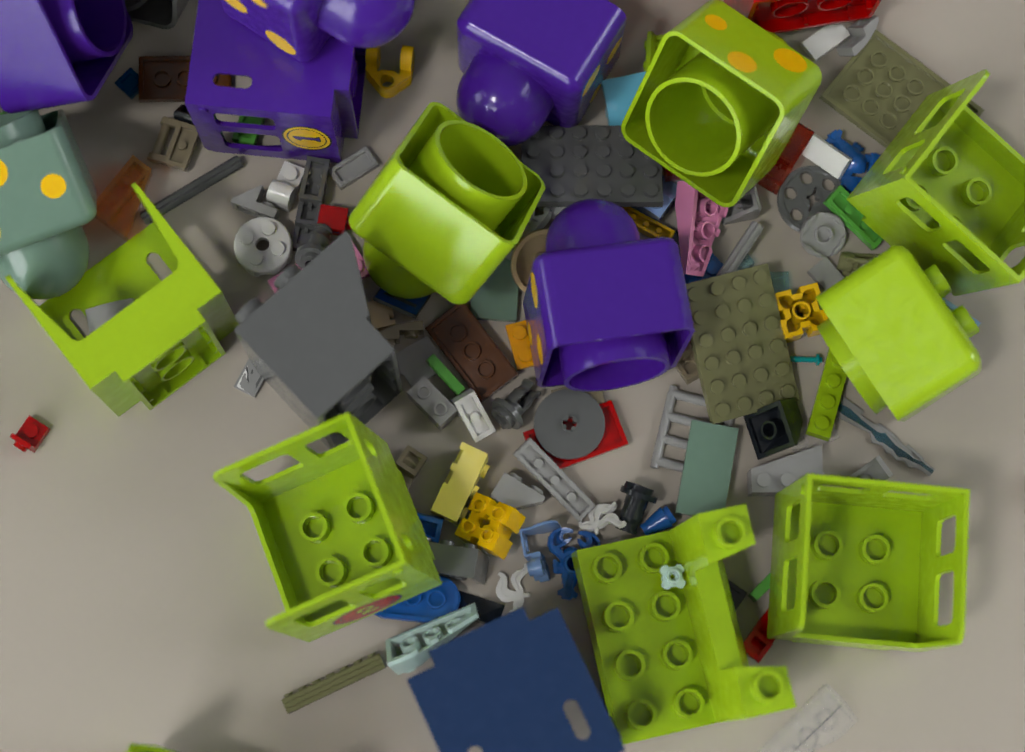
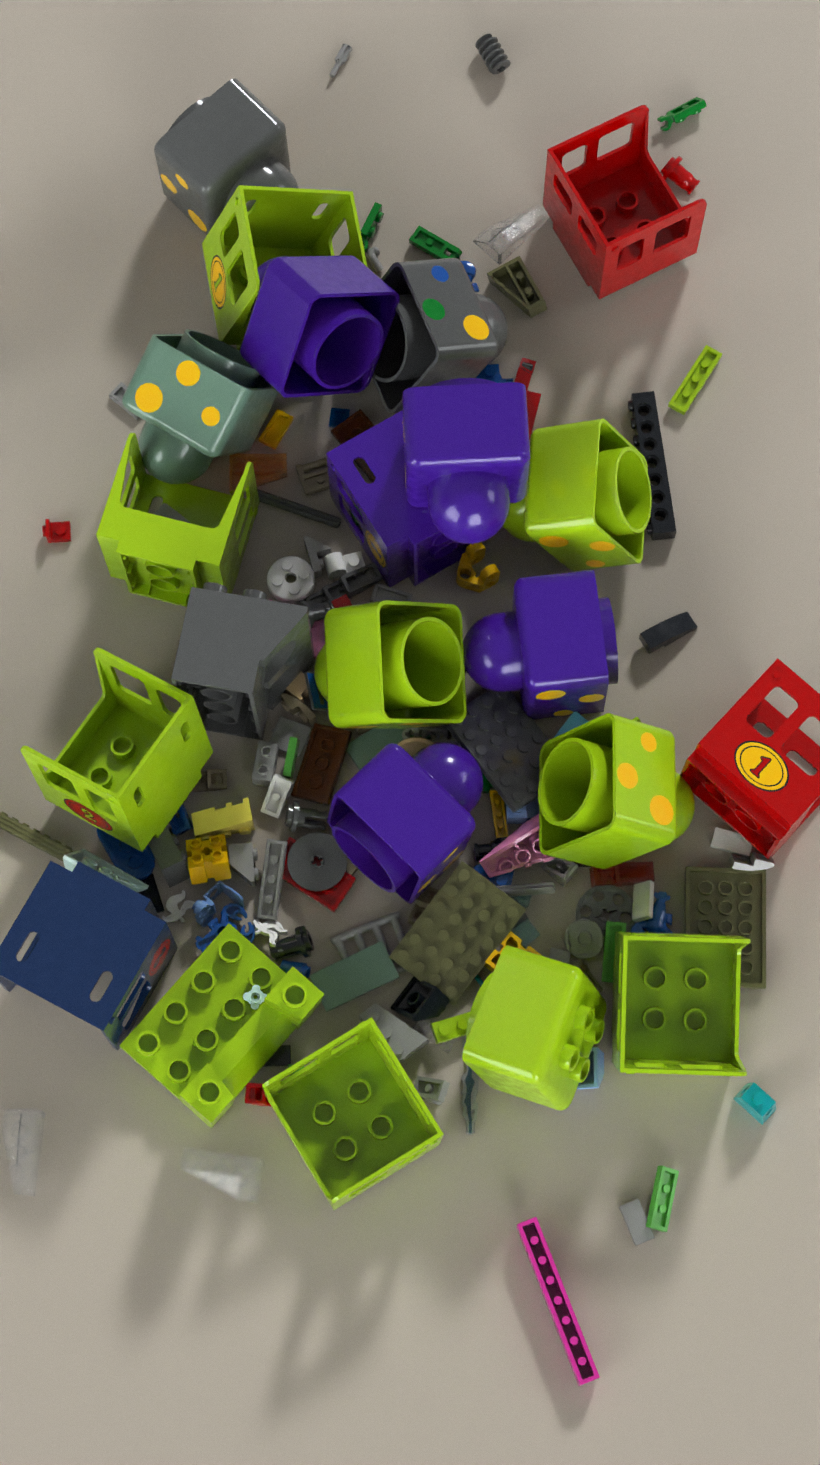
camera: 60 degrees right, 5 degrees down
(93, 150) = (276, 429): none -> yellow tile

